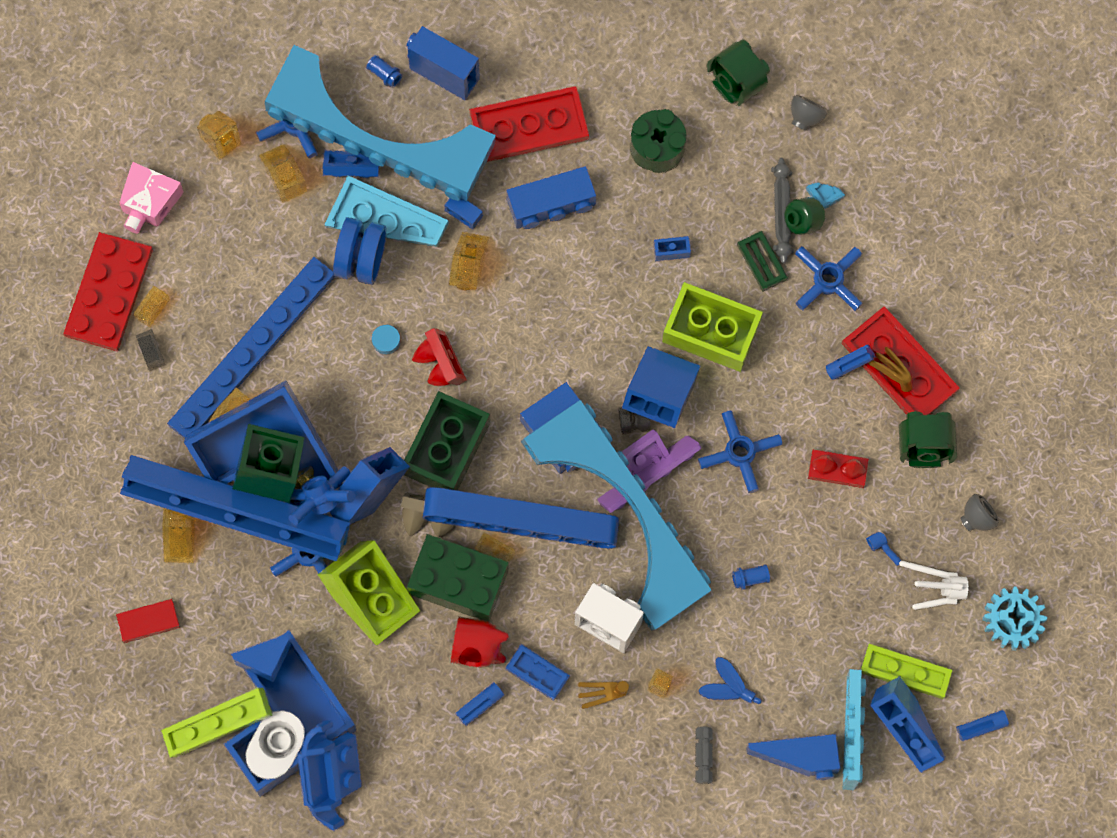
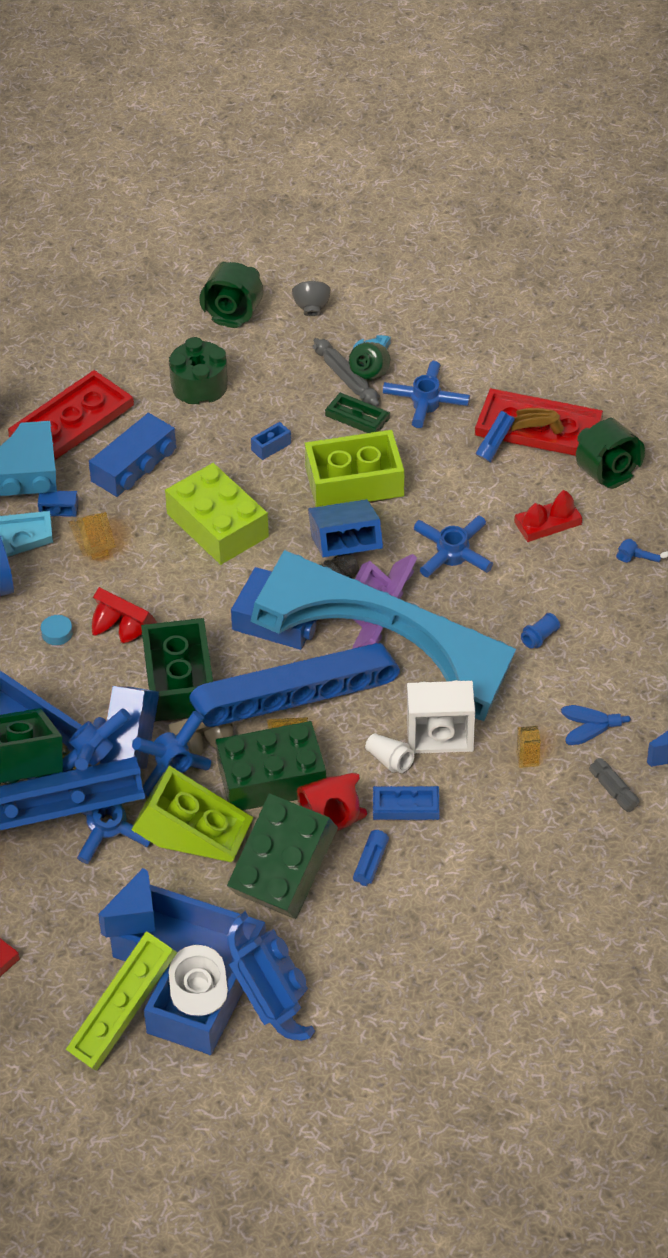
camera: 30 degrees left, 25 degrees down
(386, 527) = (172, 751): none -> blue bar
(406, 672) = (282, 856): none -> dark green brick
(557, 621) = (390, 752): none -> white cone
(576, 302) = (217, 513): none -> lime brick
(611, 690) = (482, 784): pearl gold piece -> none

